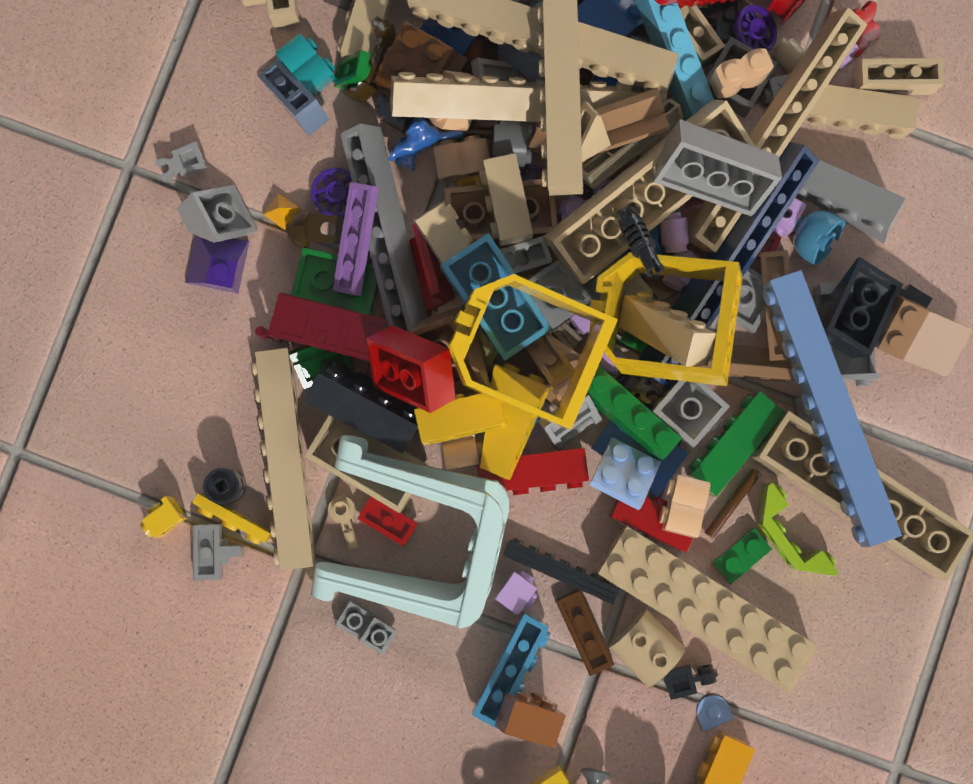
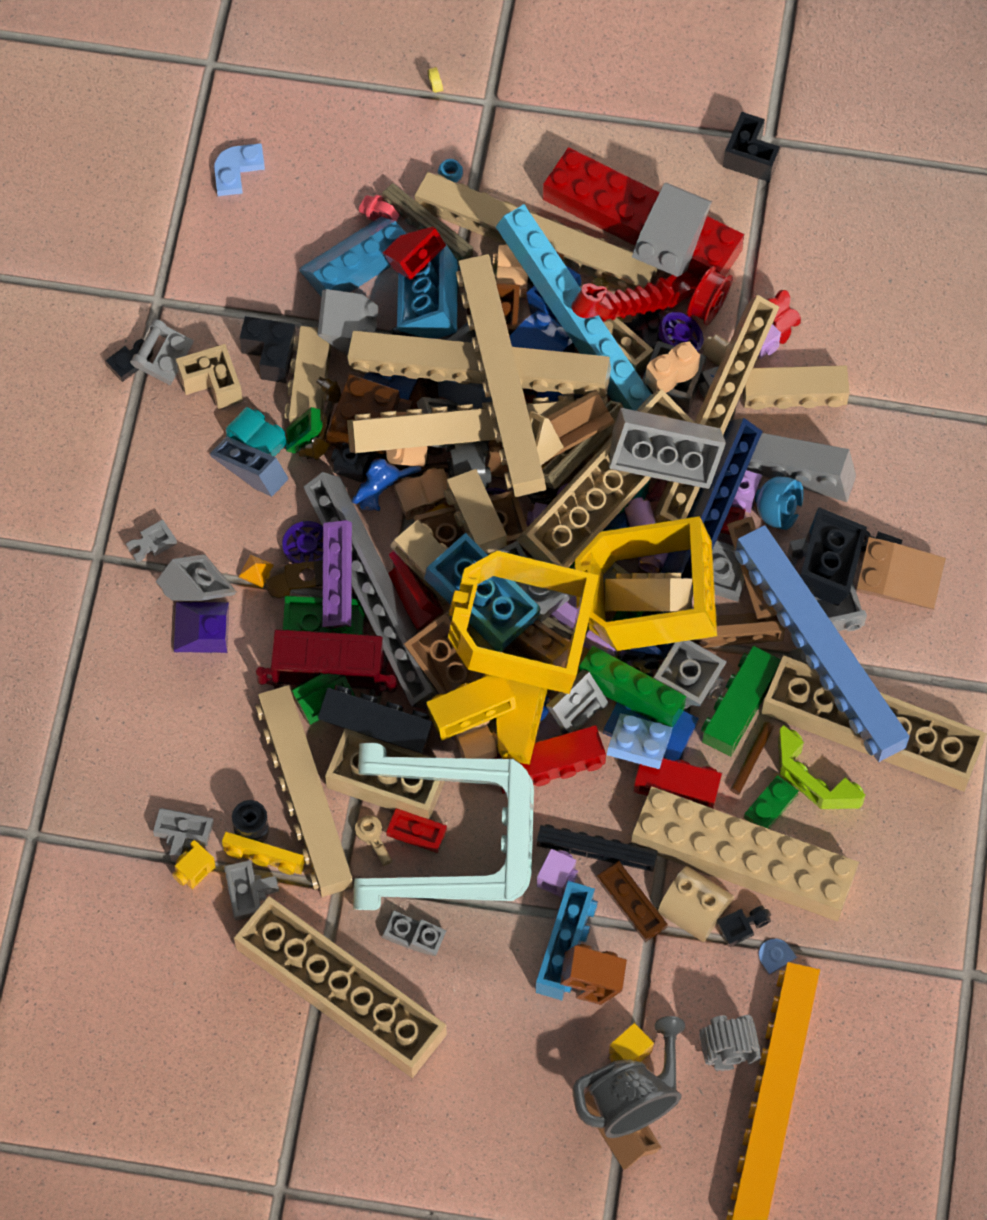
camera: 10 degrees left, 20 degrees down
(159, 478) = (181, 830): none -> light grey hinge
(281, 676) = (340, 987): none -> tan brick
(411, 368) = (416, 666): red brick -> none
(639, 240) = (606, 517): black hinge -> none
(685, 506) = (703, 755): light nougat brick -> none
(899, 75) = (825, 349): tan brick -> none

